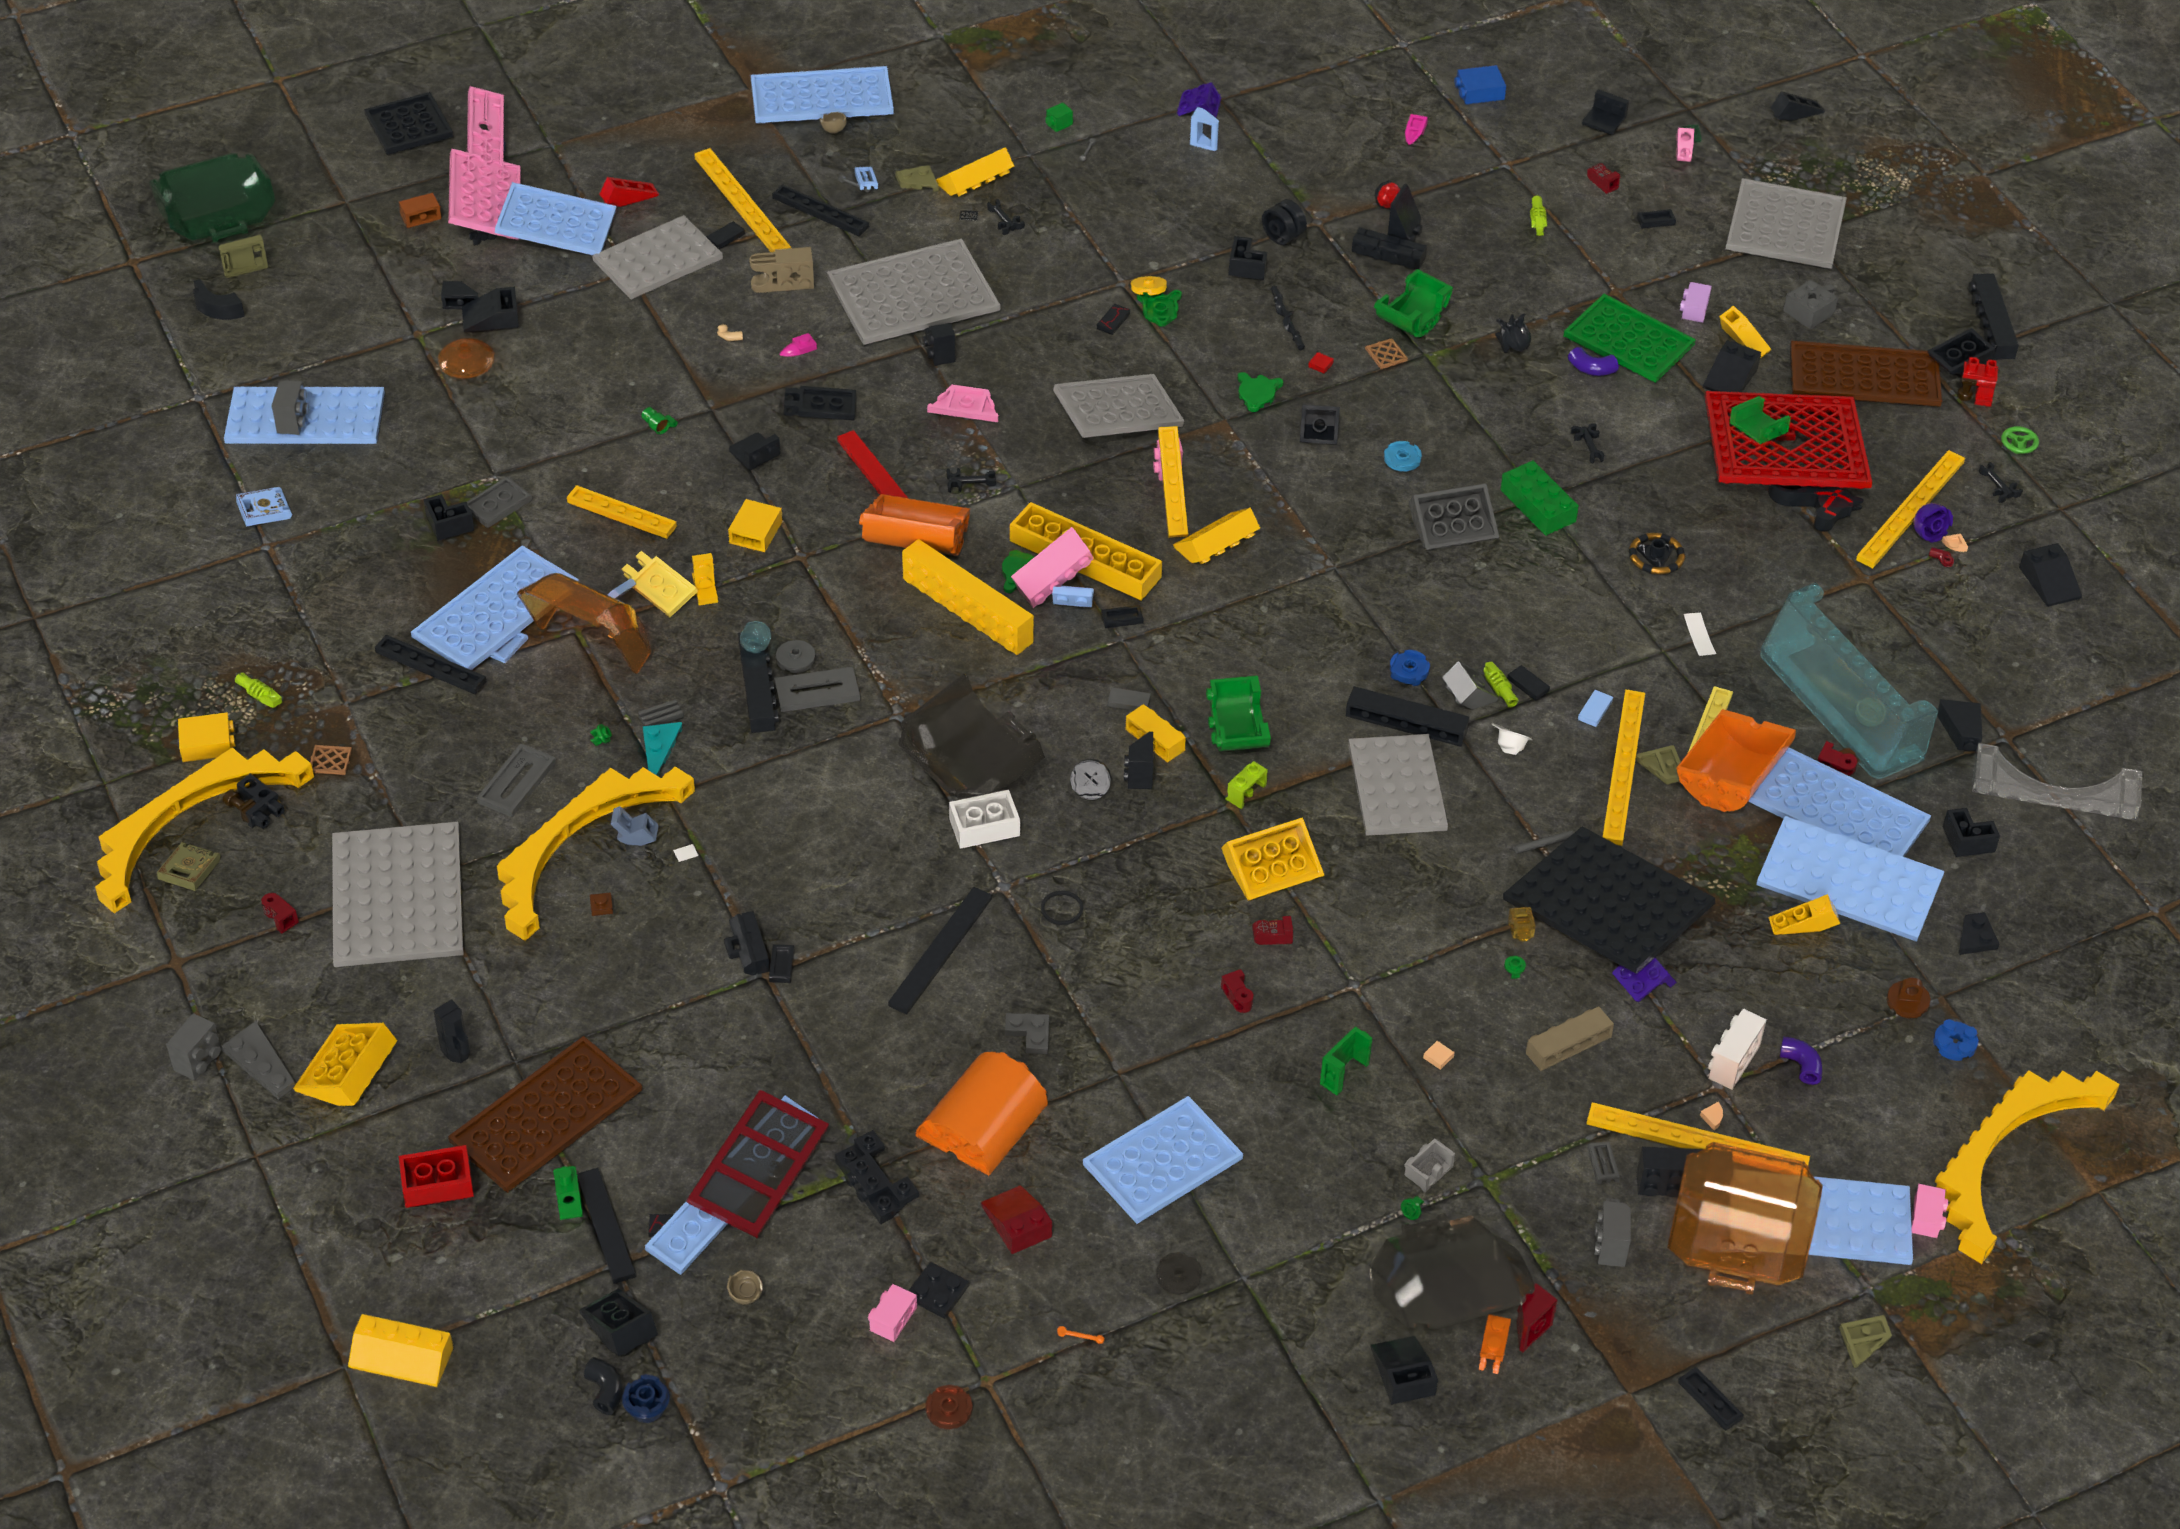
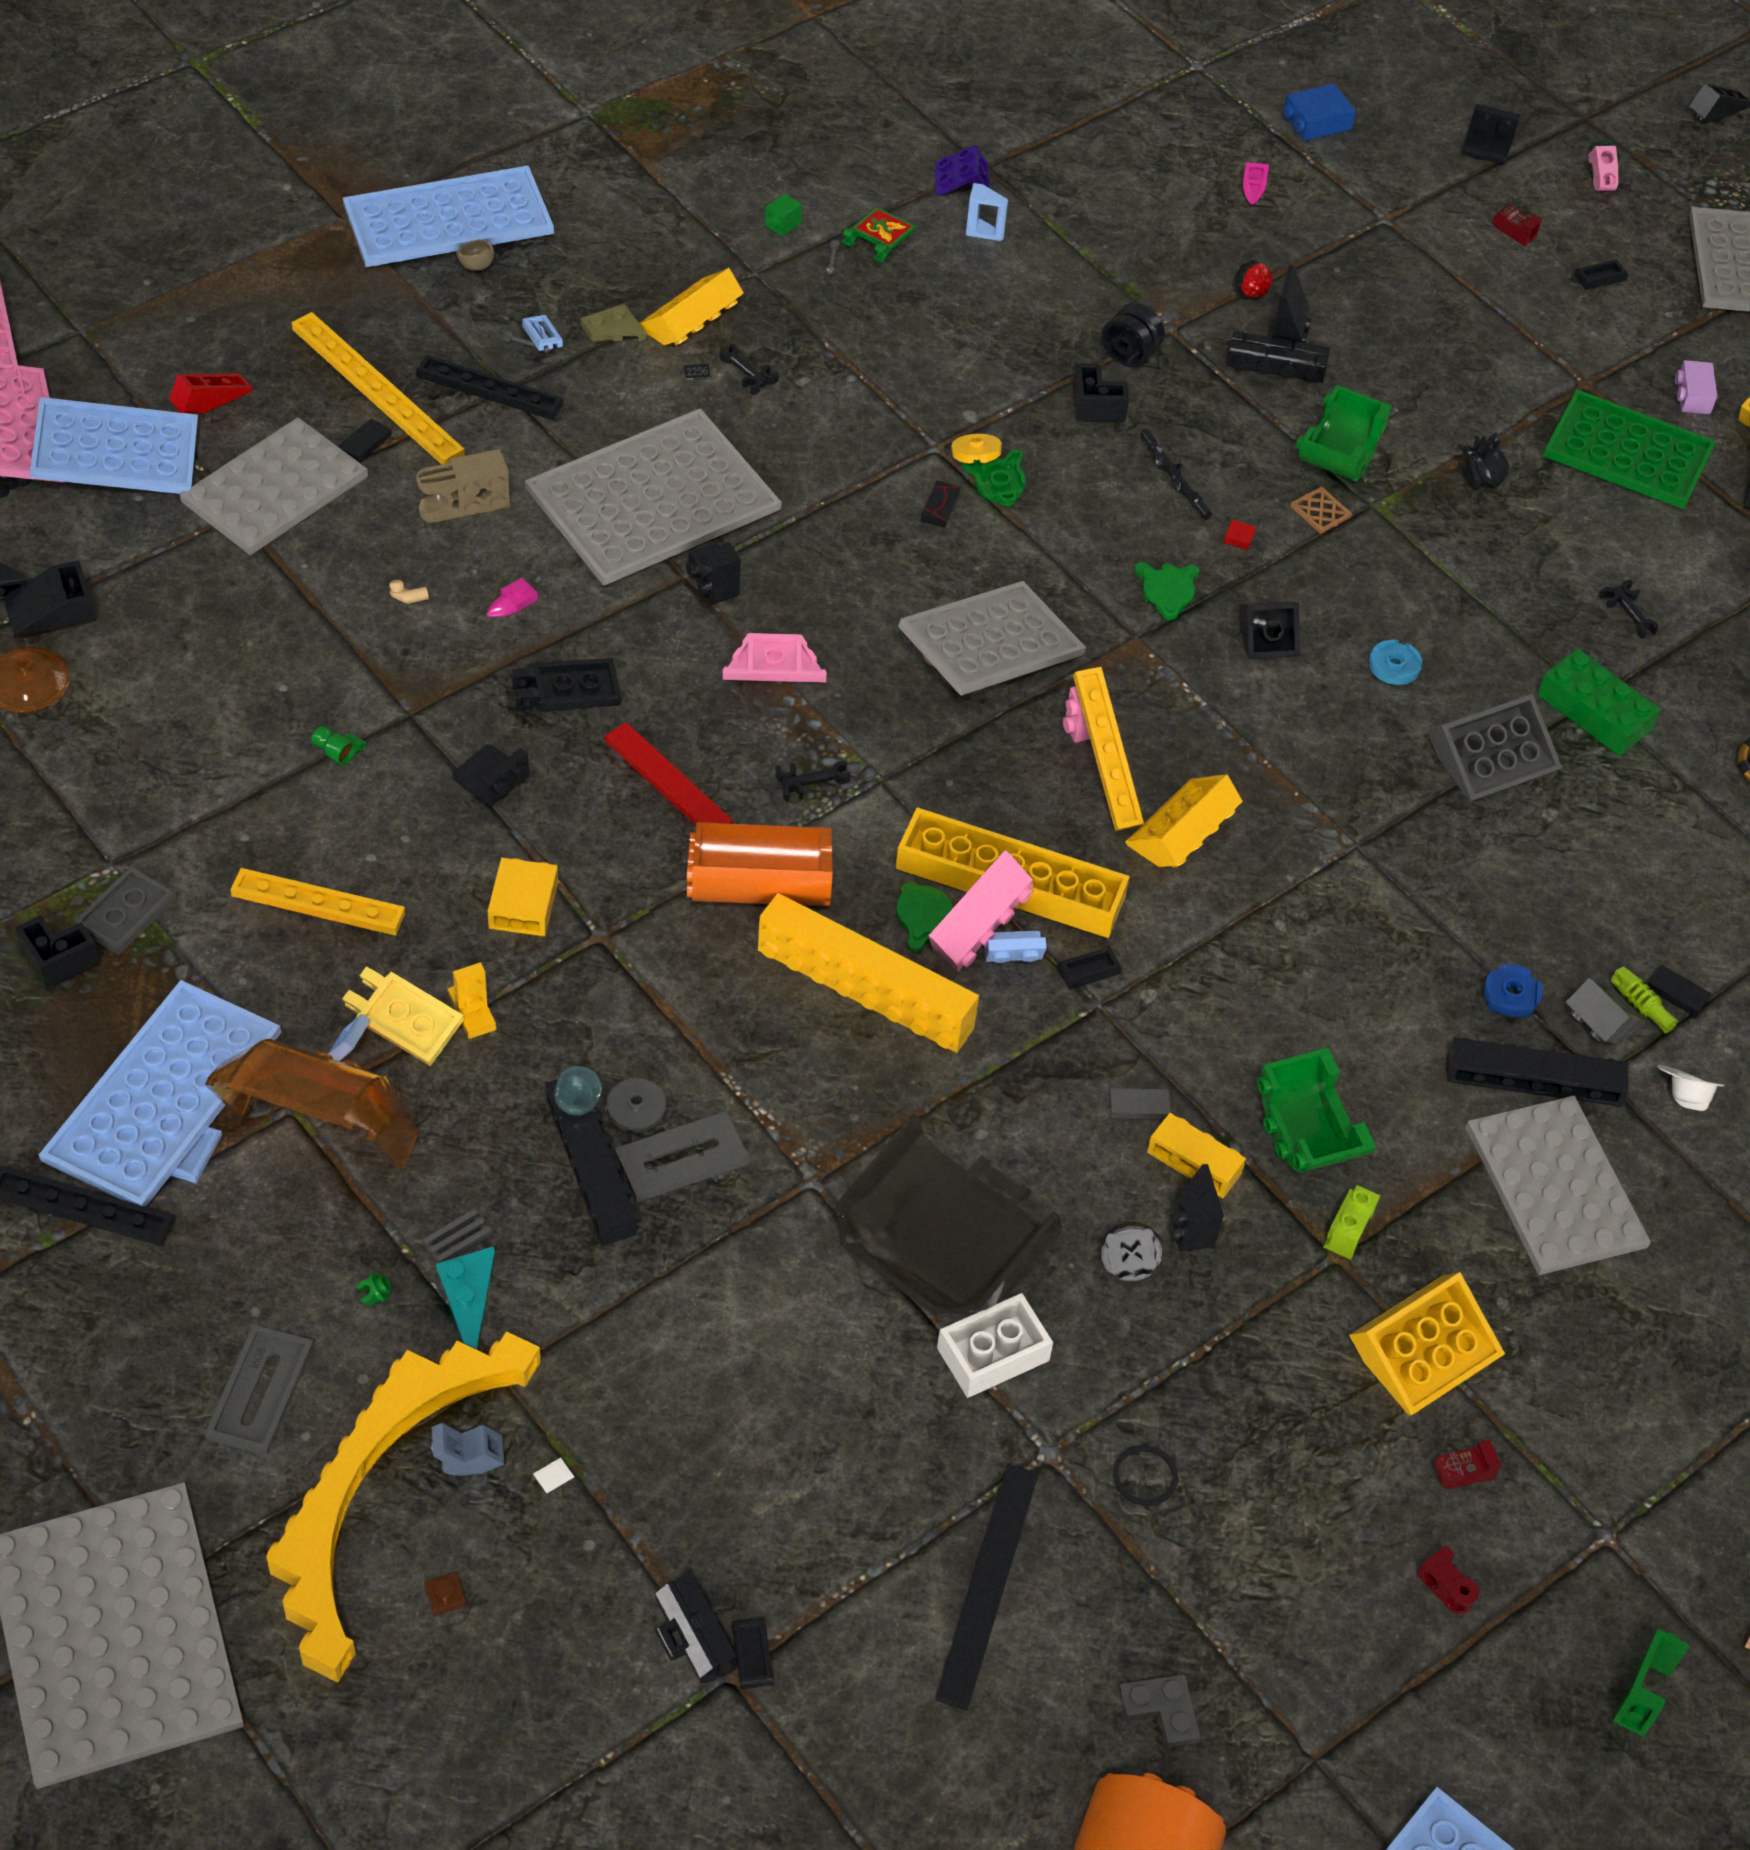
camera: 15 degrees left, 5 degrees up
(1128, 134) = (881, 229): none -> flag
(1538, 215) = (1453, 287): lime hinge -> none
(1592, 365) = (1595, 494): dark purple cylinder -> none

